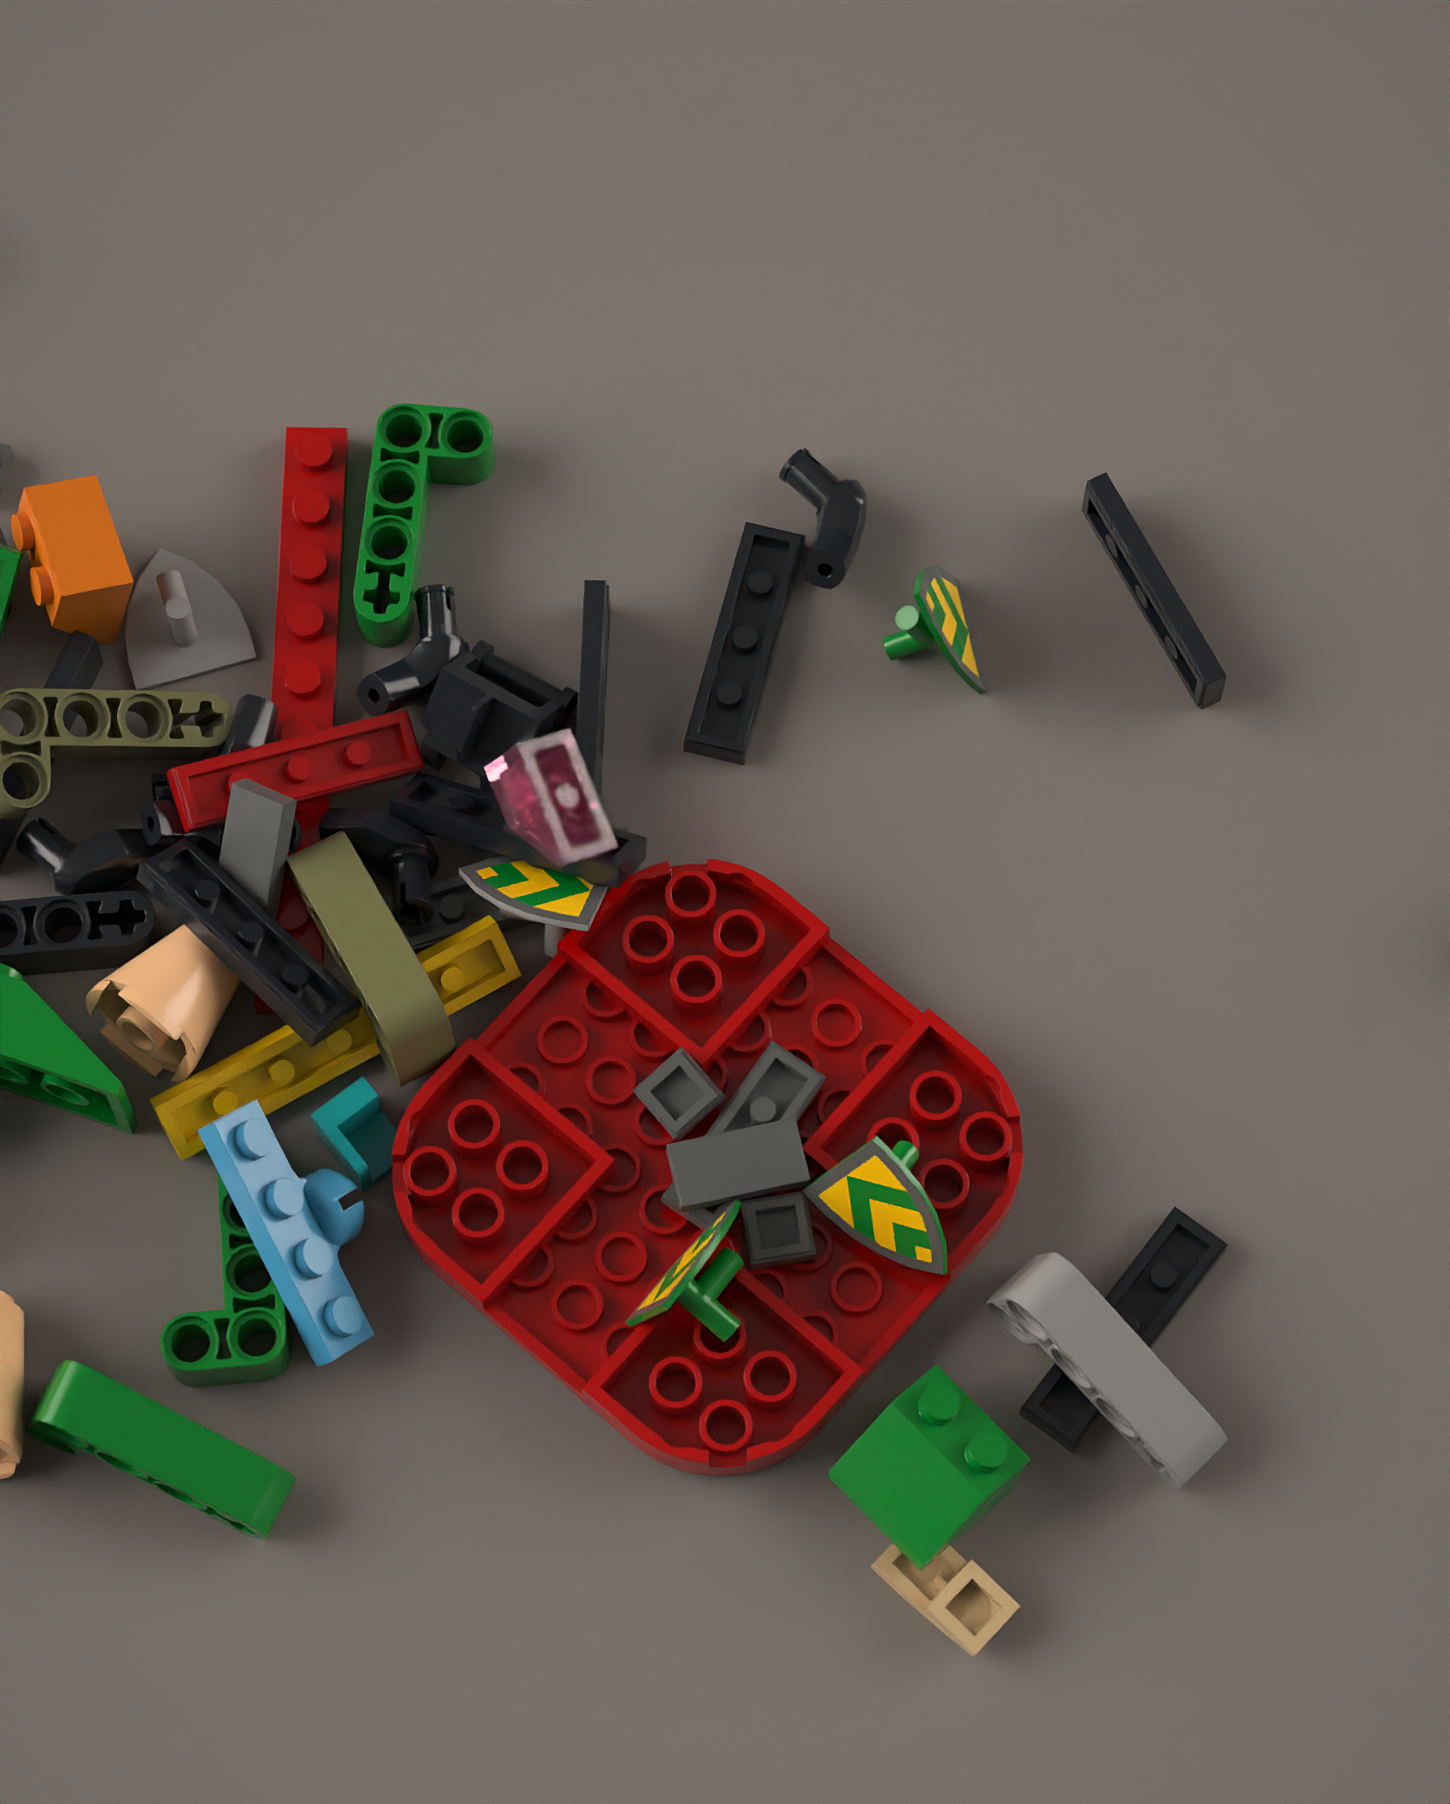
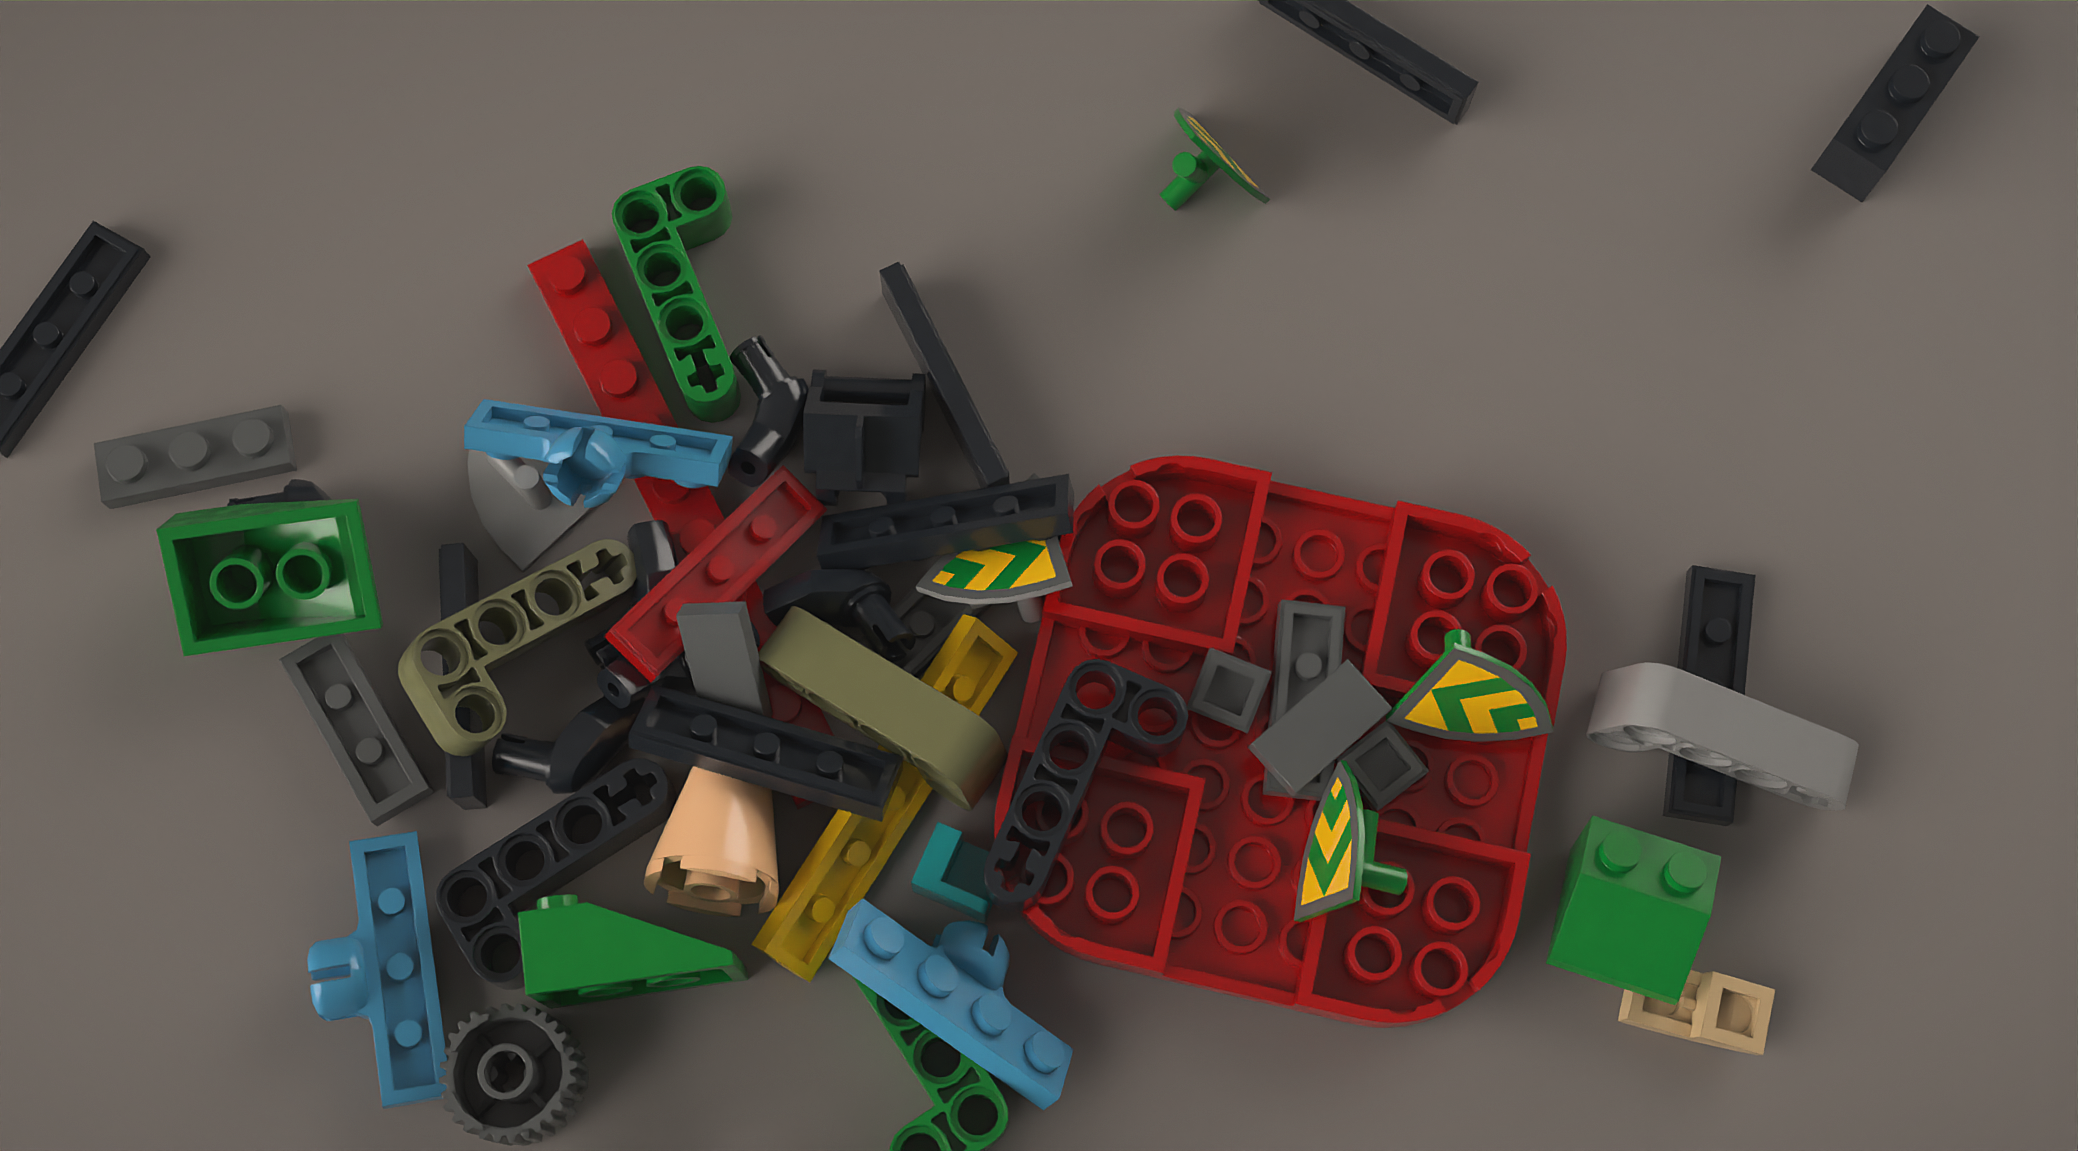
camera: 30 degrees left, 5 degrees up
(74, 556) = (404, 476): orange slope -> none
(248, 615) = (596, 452): none -> dark azure plate
(491, 1102) = (1068, 788): none -> black beam
(551, 799) = (972, 483): clear pink slope -> none
(744, 643) = (1042, 259): black tile -> none
(839, 512) = (1064, 107): black arm -> none

